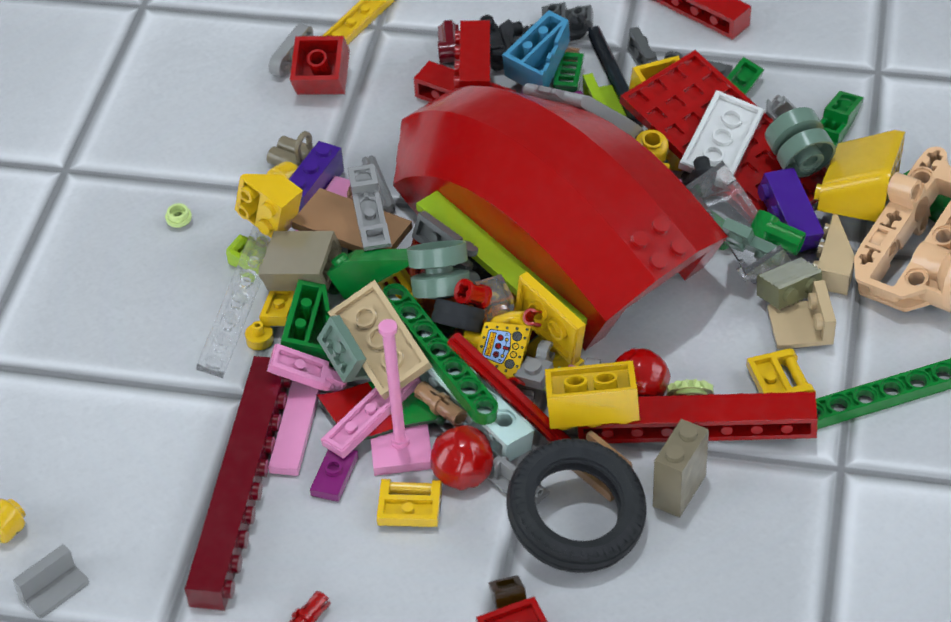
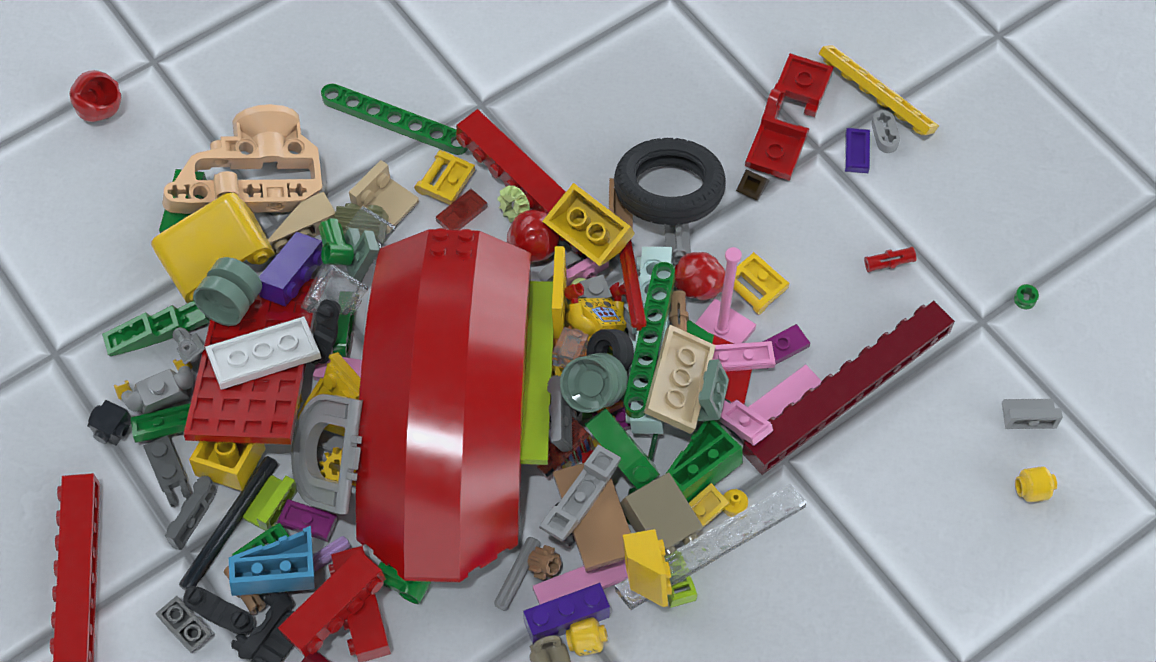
camera: 140 degrees left, 15 degrees up
(474, 294) = (590, 342): red bush -> none
(654, 142) = (315, 385): yellow head -> none
(680, 467) = (585, 151): dark tan brick -> none
(731, 367) = (462, 211): none -> clear red plate
(767, 79) = (158, 390): none -> light grey torso
(774, 58) = (109, 422): none -> black brick

